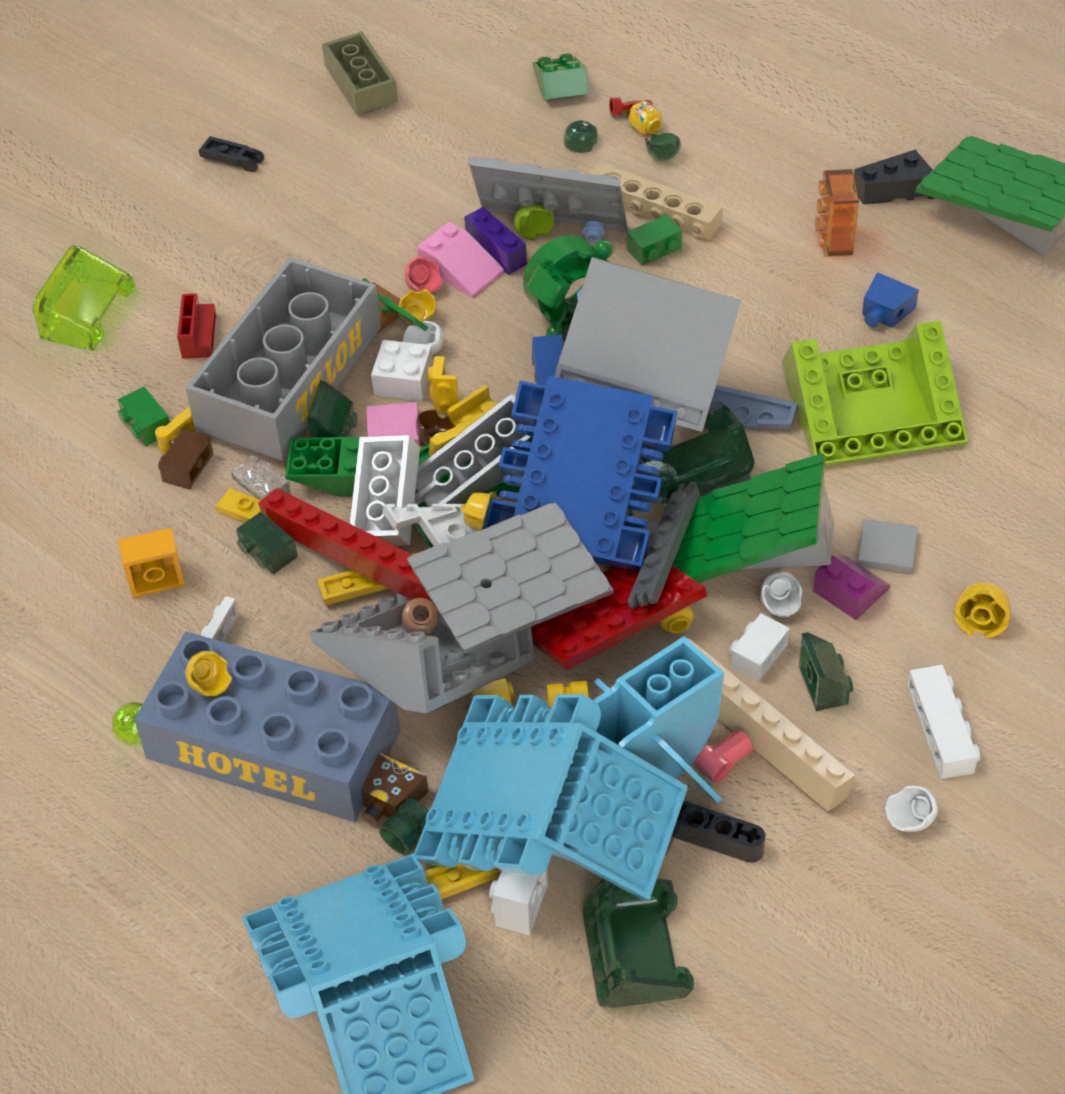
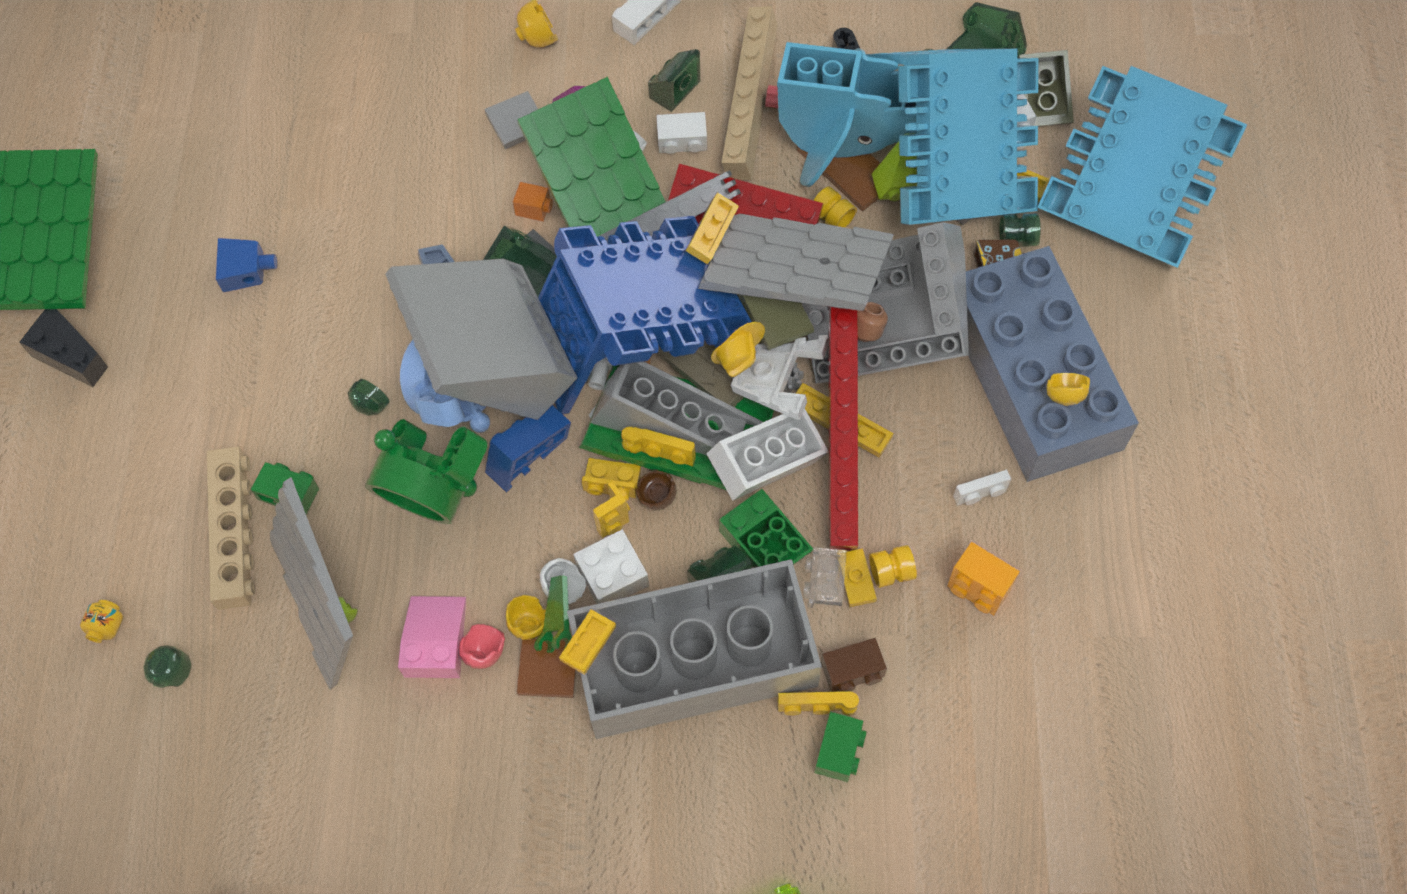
camera: 130 degrees left, 15 degrees up
(123, 722) = (1111, 476): clear neon green hair -> none
(196, 327) = (700, 801): red piece -> none
(221, 527) = (892, 566): none -> yellow wheel
(266, 543) = (879, 522): clear green brick -> none
(339, 275) = (587, 641): none -> yellow plate
(392, 420) = (673, 536): bright pink tile -> none
(497, 240) = (384, 621): dark purple brick -> none
(539, 978) = (1054, 97): none -> olive slope
(561, 76) = (76, 756): slope -> none
(605, 551) = (712, 228): none -> yellow plate
(616, 105) = (94, 662): red piece -> none
(663, 146) = (137, 572): clear green hair -> none
(837, 212) = (162, 340): clear orange brick -> none
(876, 397) = (363, 206): lime slope -> none

